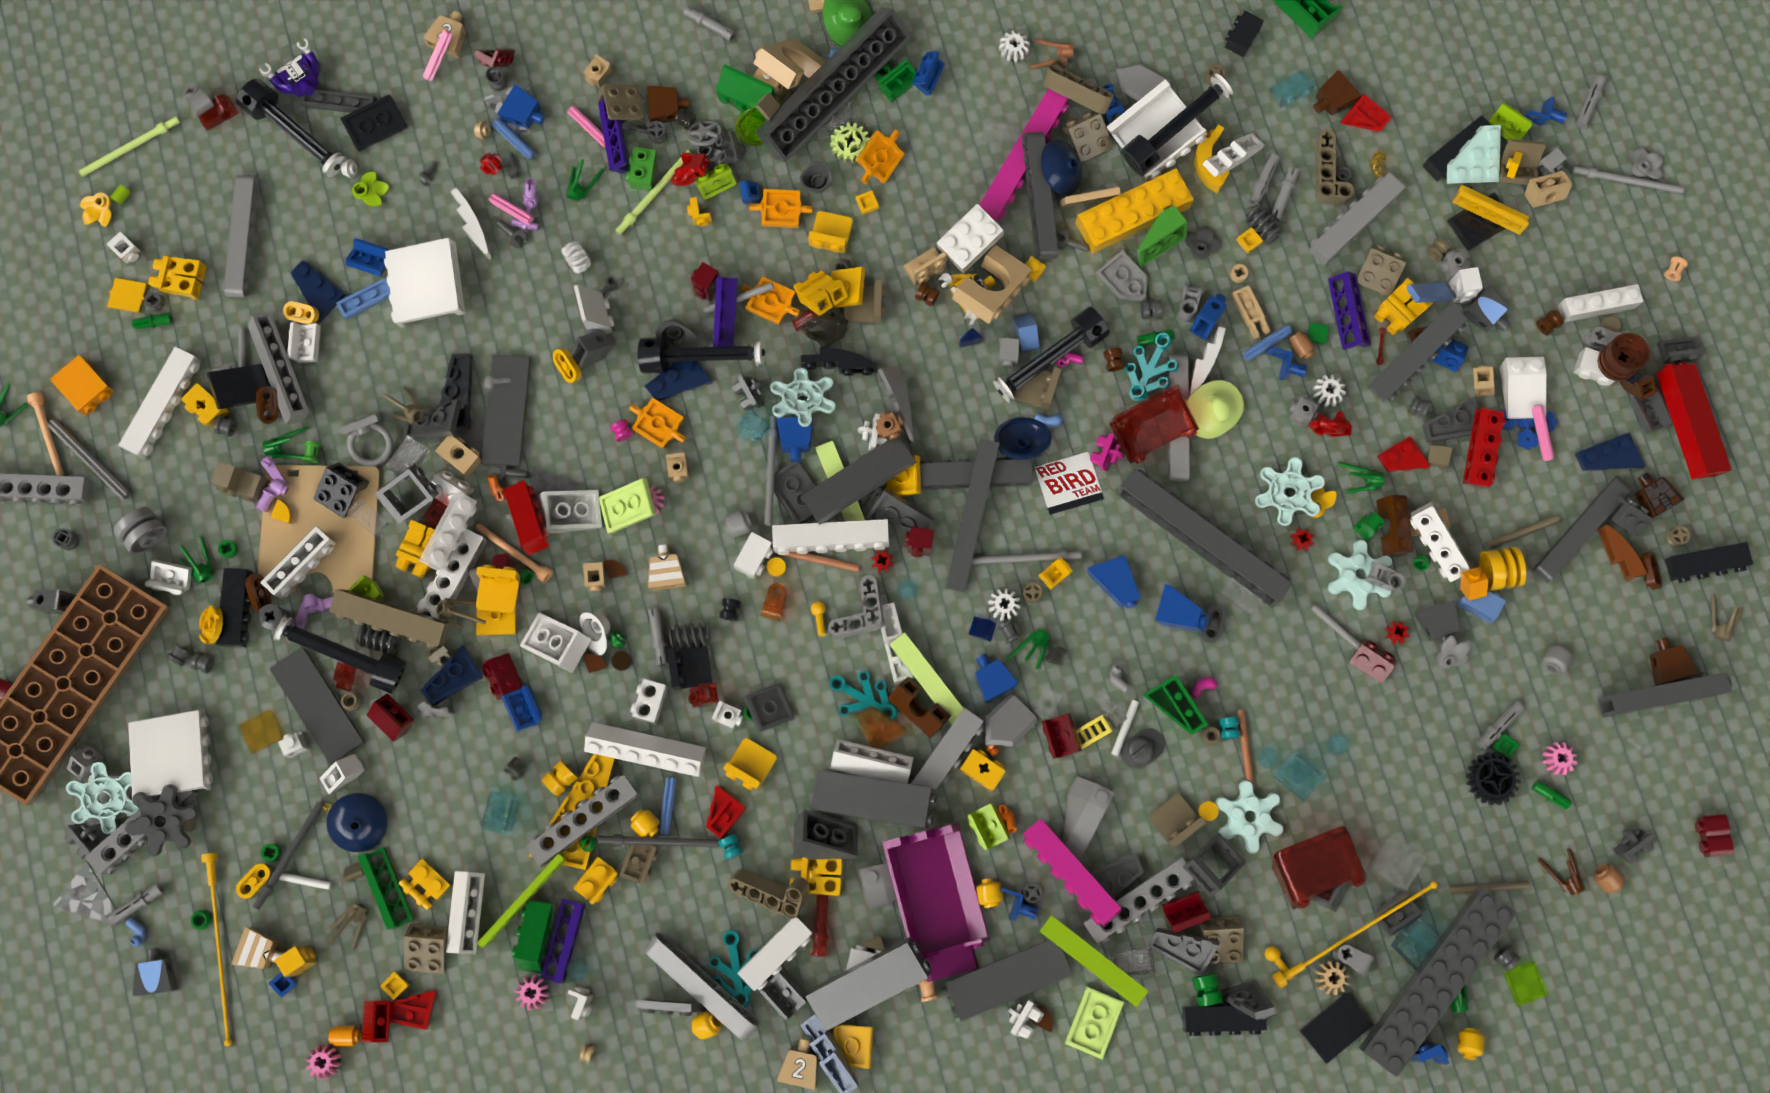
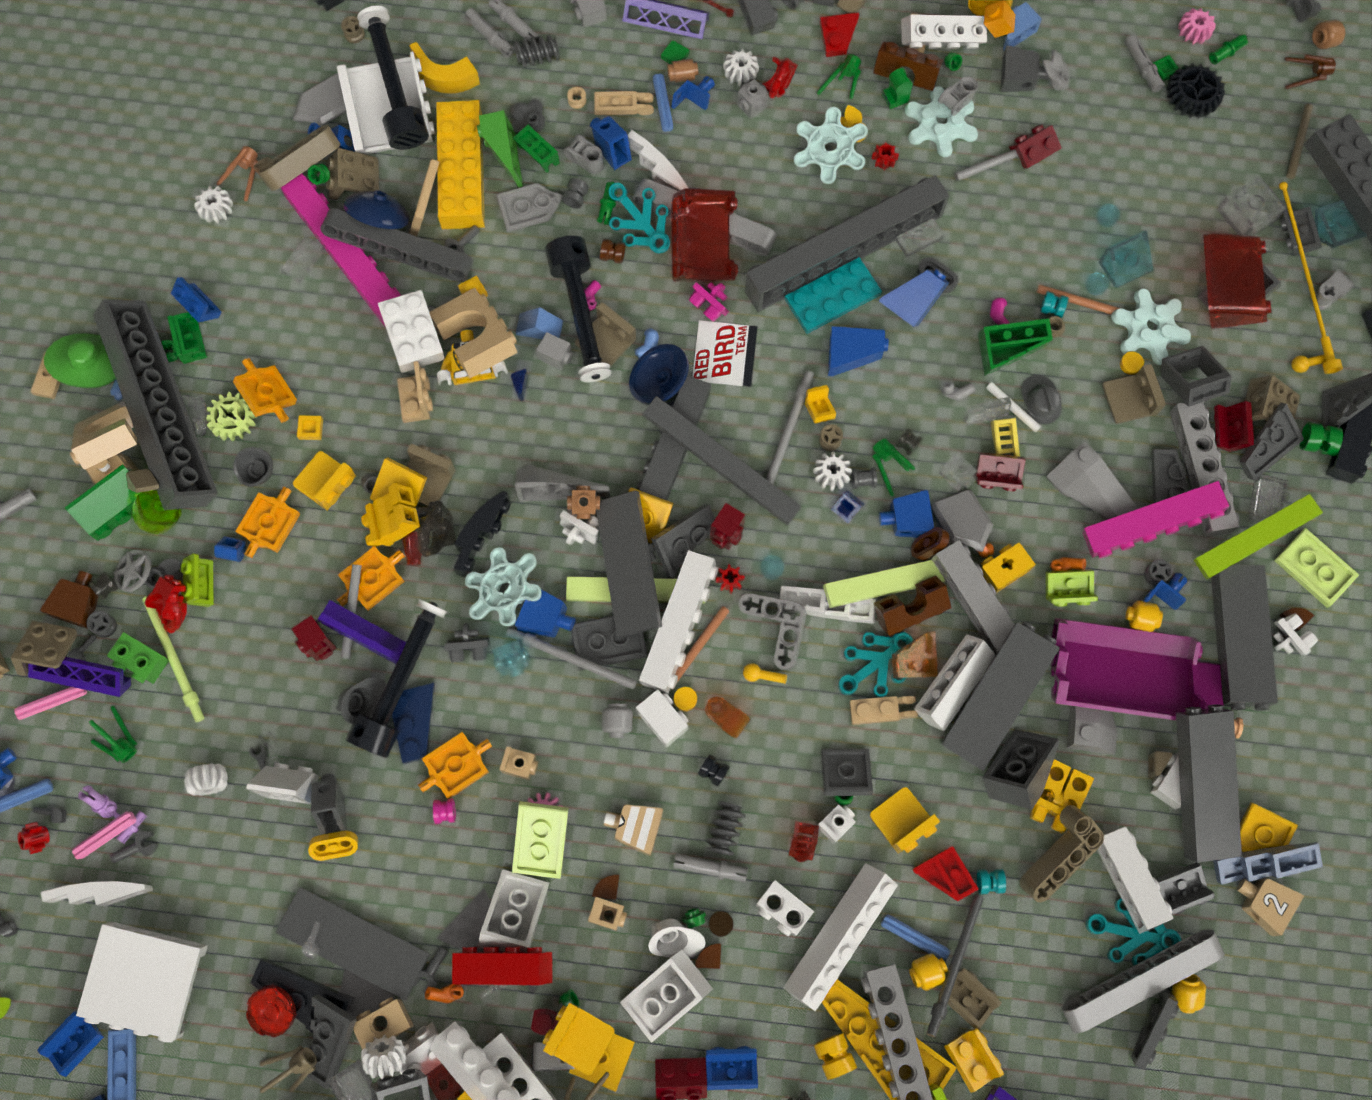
camera: 70 degrees left, 5 degrees down
(435, 464) = (383, 1057): none -> white gear
(439, 377) = (270, 1011): none -> clear red tile
(542, 573) = (573, 977): light nougat piece -> none
(592, 845) = (924, 1054): green hinge -> none
(689, 667) = (763, 844): black bracket -> none
(693, 210) = (220, 619): yellow bracket -> none
(732, 150) = (171, 547): dark grey hips -> none
(820, 936) = (1126, 819): clear red pin -> none
(828, 715) = (880, 710): none -> tan hinge
(927, 294) = (444, 411): reddish brown wheel -> none
(974, 702) = (930, 543): none -> reddish brown plate
(1072, 105) = (324, 174): none -> green bush
(1157, 547) = (833, 295): none -> teal plate
(1175, 262) = (537, 147): none -> green hinge
(1216, 407) = (710, 171): yellowish green hat -> none
(1233, 155) = (449, 45): white slope -> none
(1249, 240) = (547, 72): yellow plate -> none
(1336, 984) = (1345, 317): tan gear -> none
(1399, 637) = (1016, 111): red gear -> none

